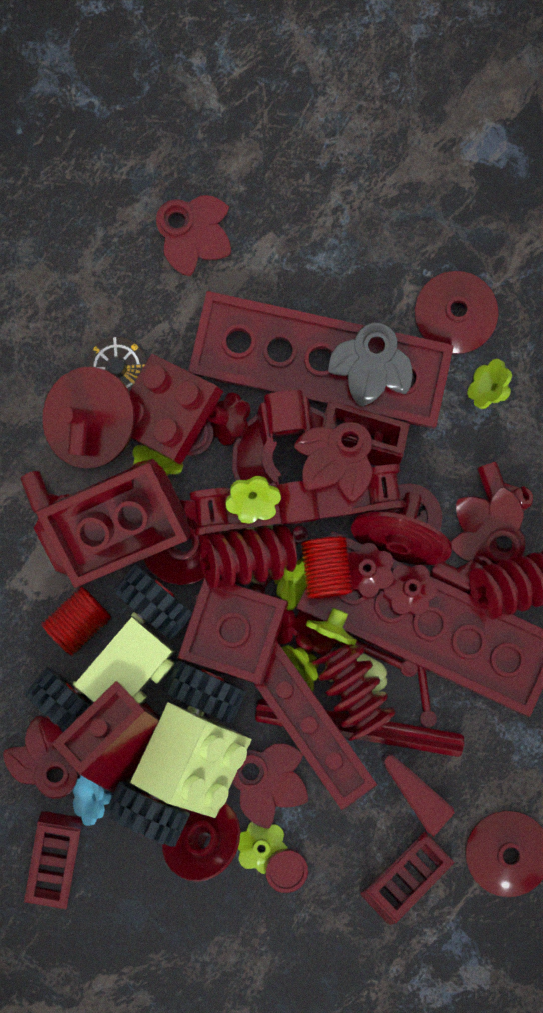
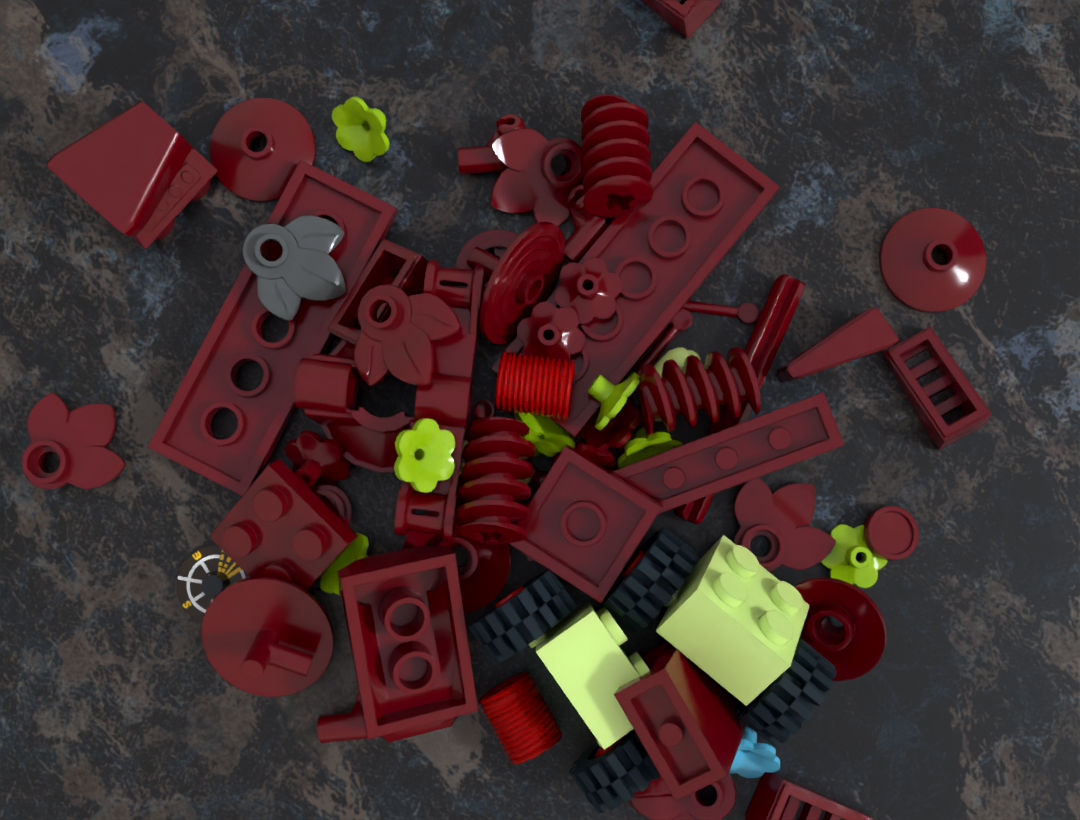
camera: 70 degrees left, 0 degrees up
(410, 226) = (135, 173): none -> dark red piece

